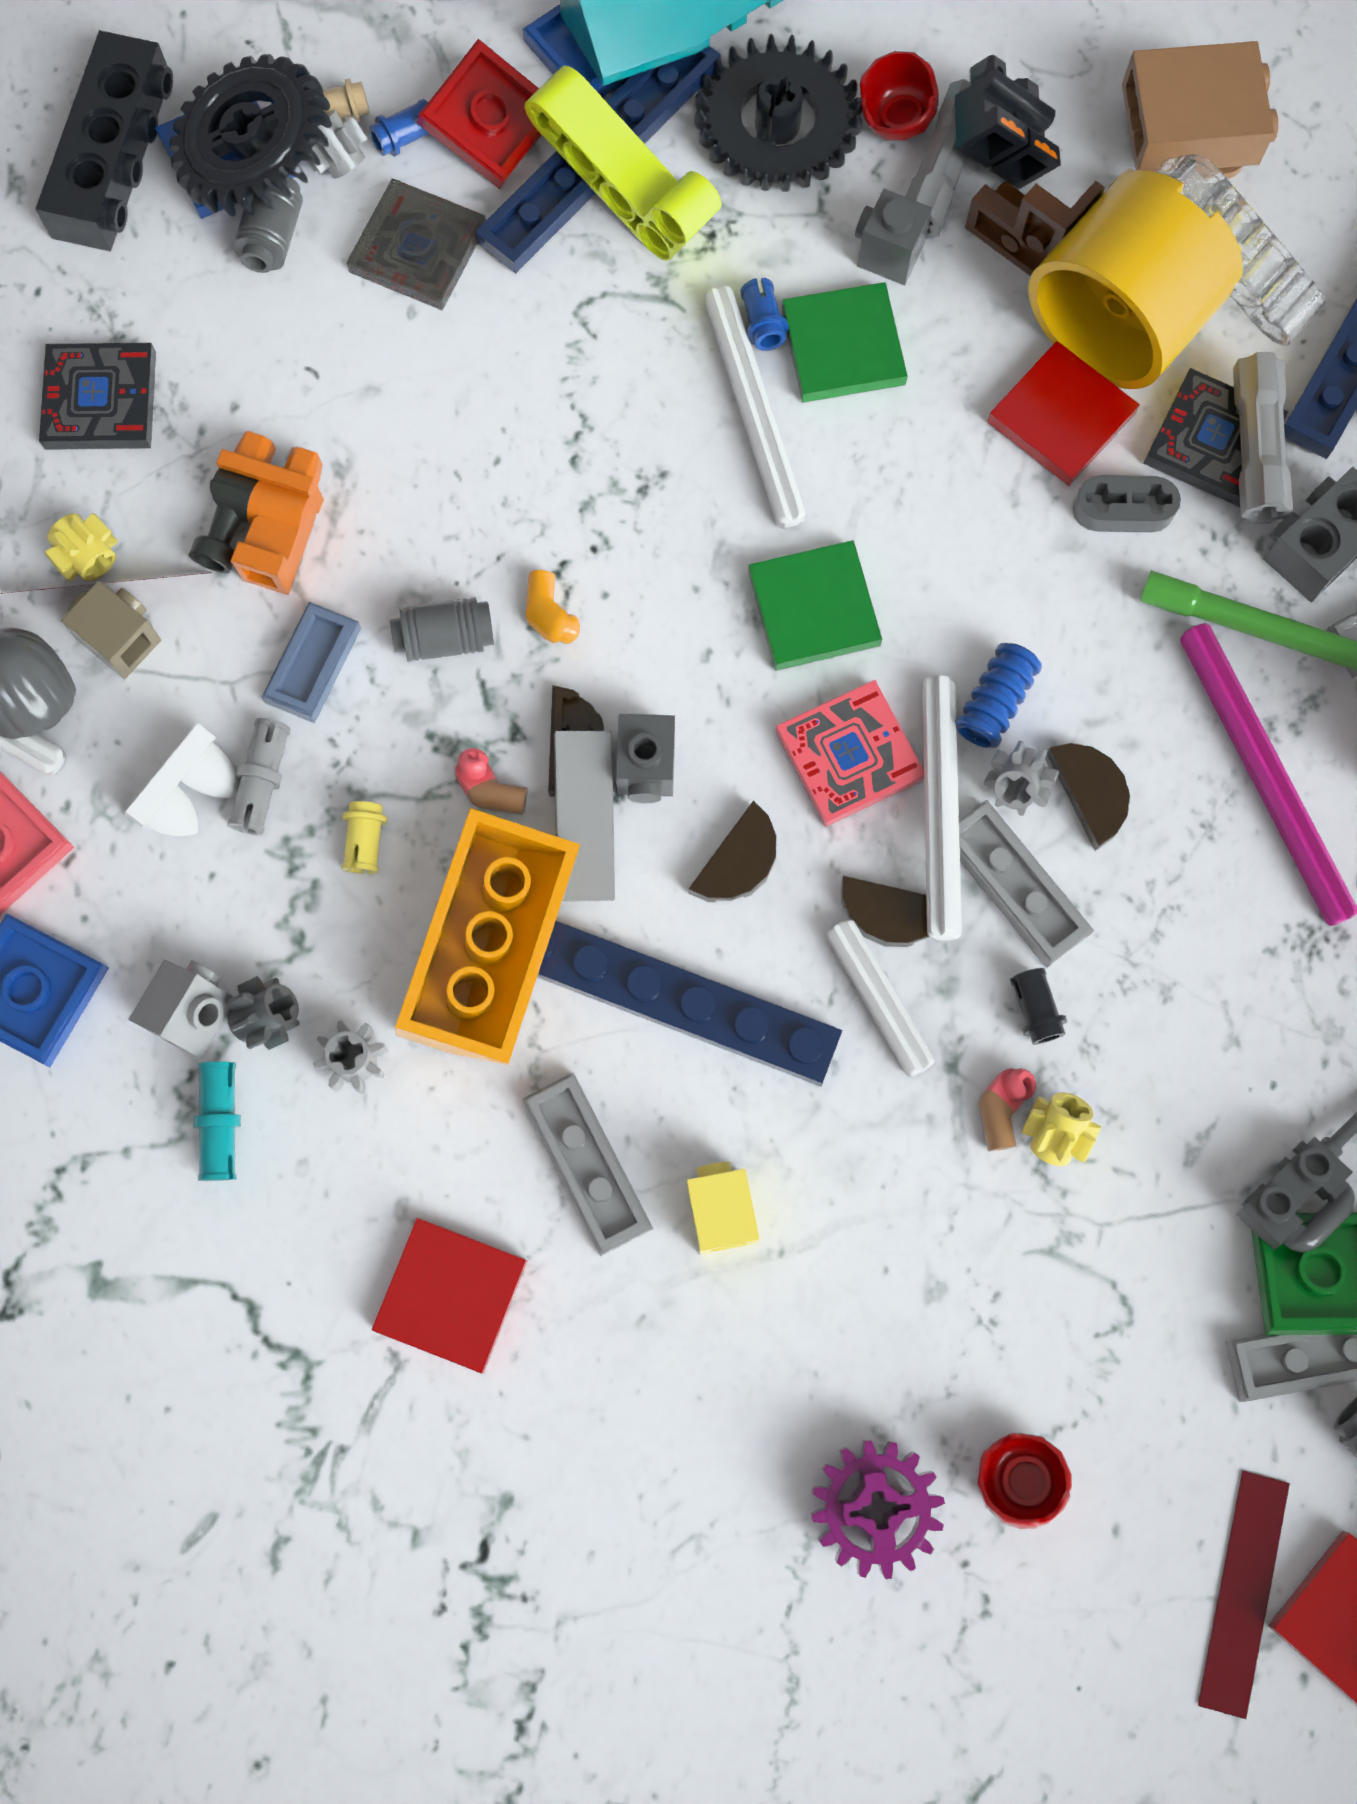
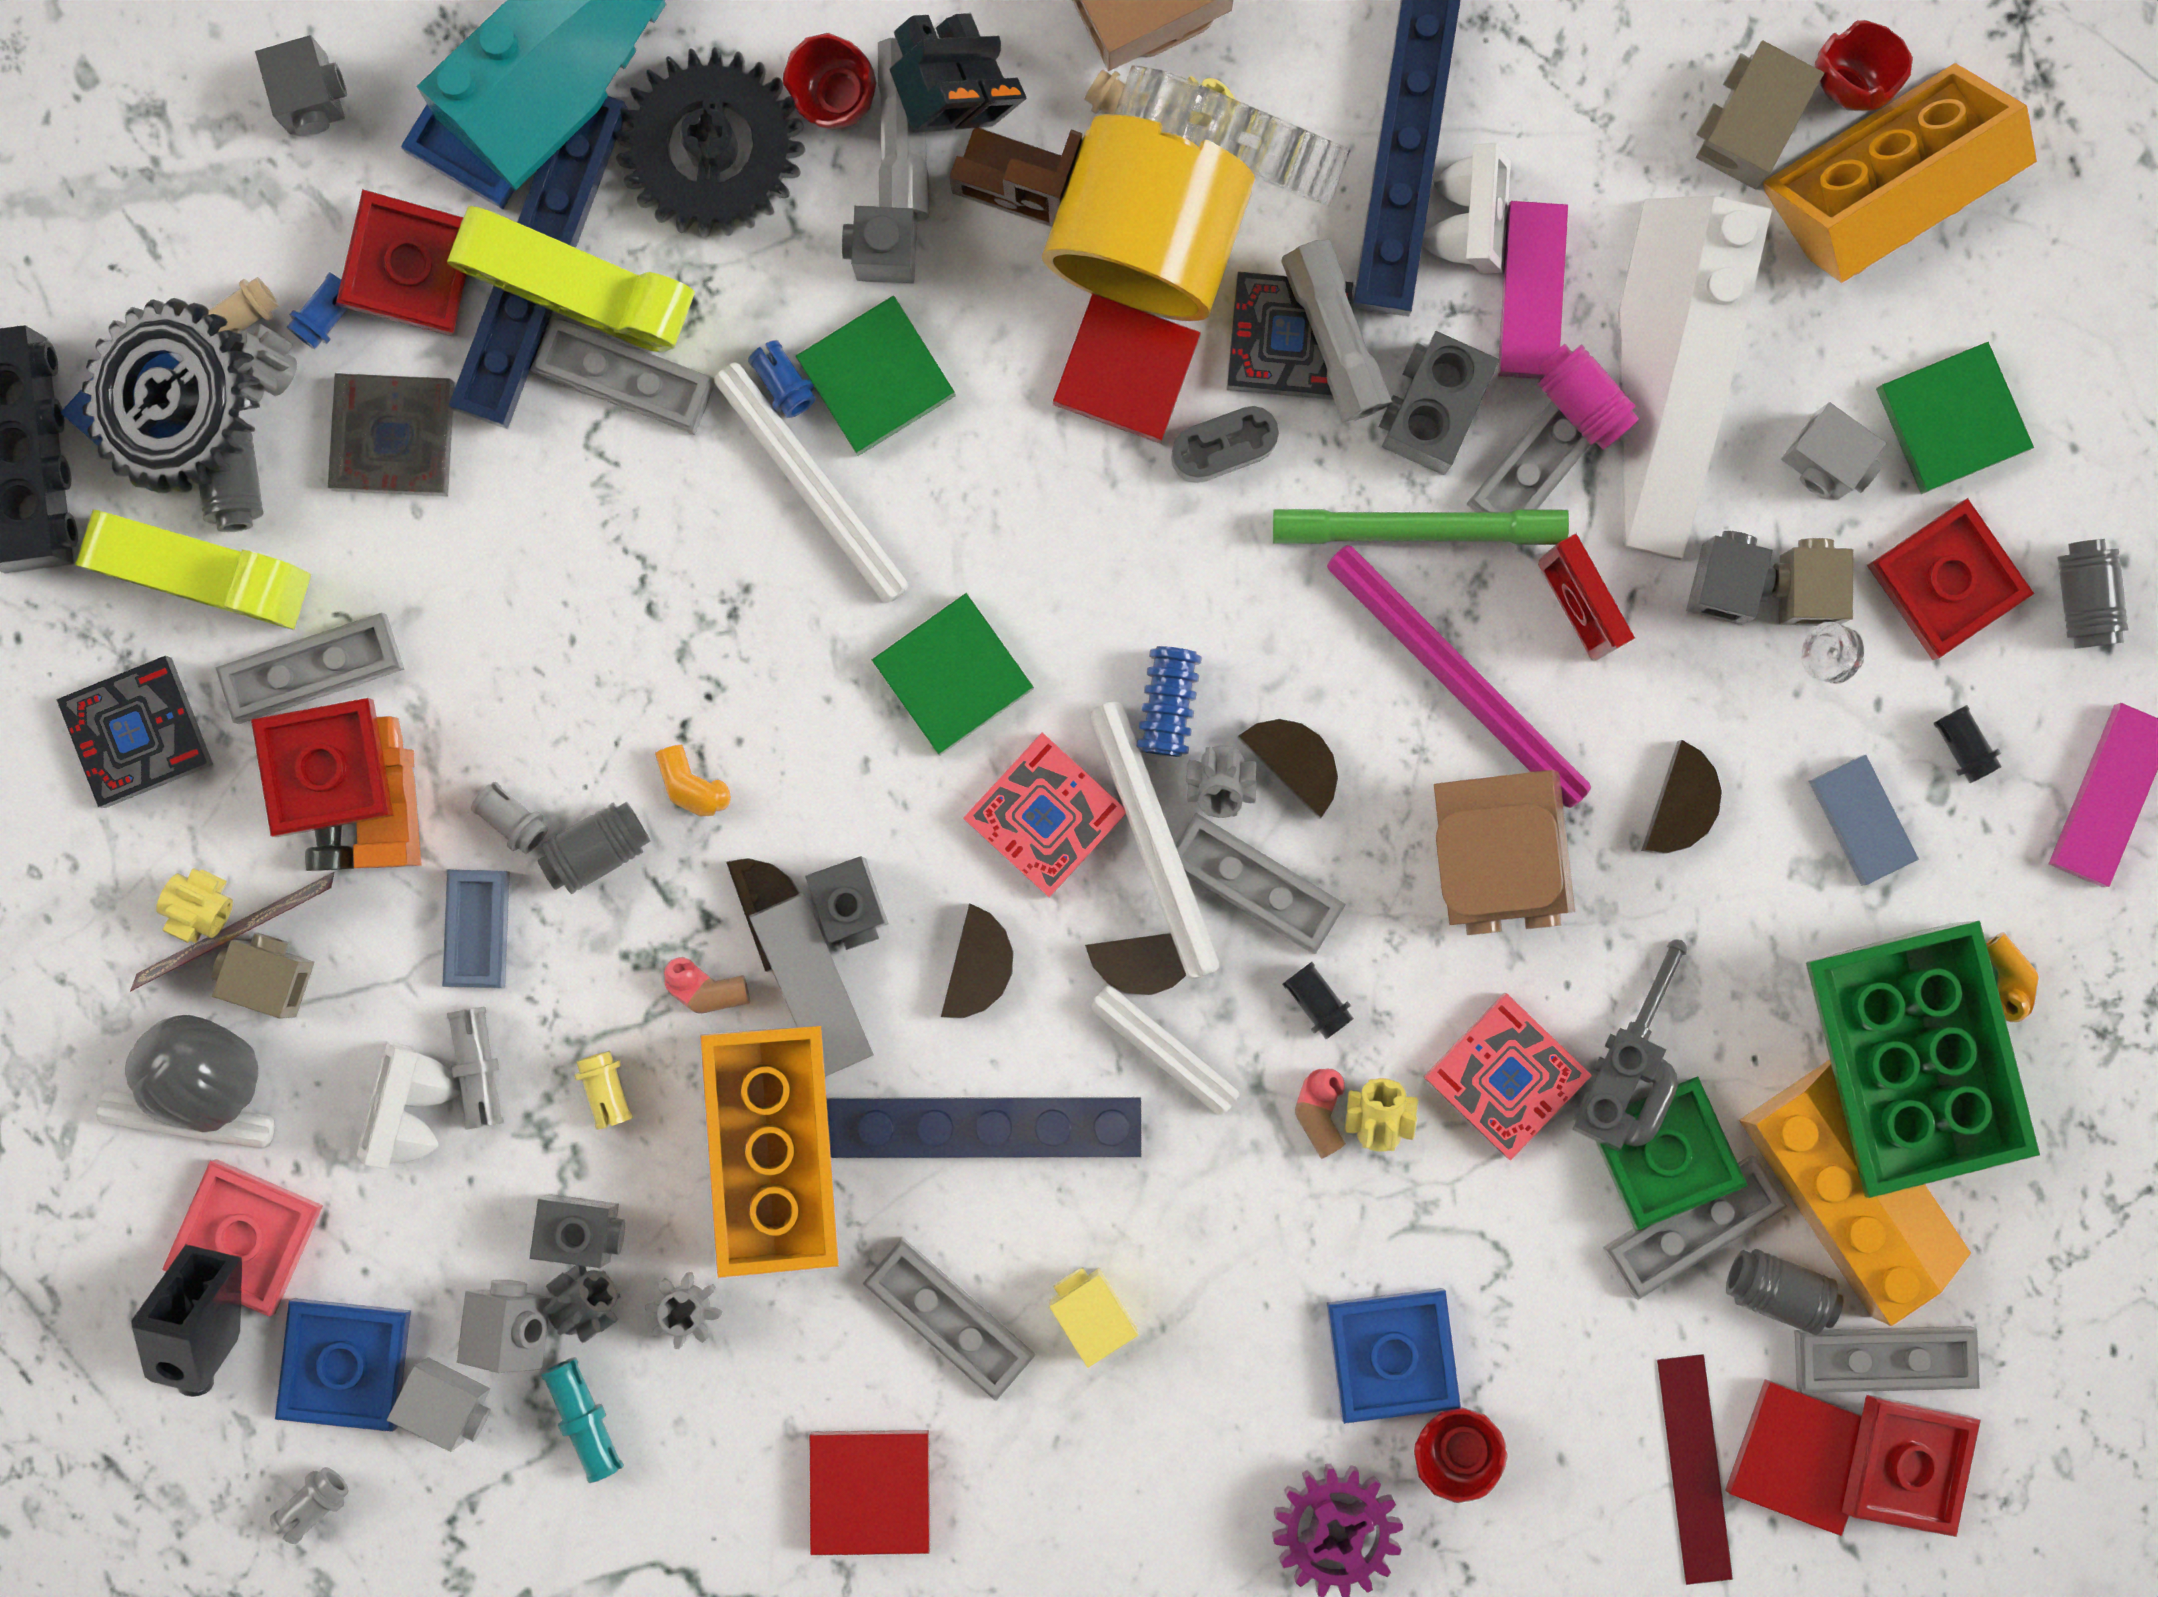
camera: 20 degrees left, 10 degrees up
(96, 1056) = (441, 1405): none -> light grey brick
(240, 467) = (322, 767): none -> red tile
(244, 307) = (194, 569): none -> neon yellow beam
(266, 400) = (309, 668): none -> light grey tile
(285, 948) = (576, 1231): none -> dark grey brick
(382, 581) = (510, 818): none -> light grey pin
(630, 267) = (623, 375): none -> light grey tile
(990, 1363) = (1393, 1355): none -> blue tile
(1190, 1144) = (1507, 1076): none -> tile
(1261, 932) = (1503, 851): none -> medium nougat brick

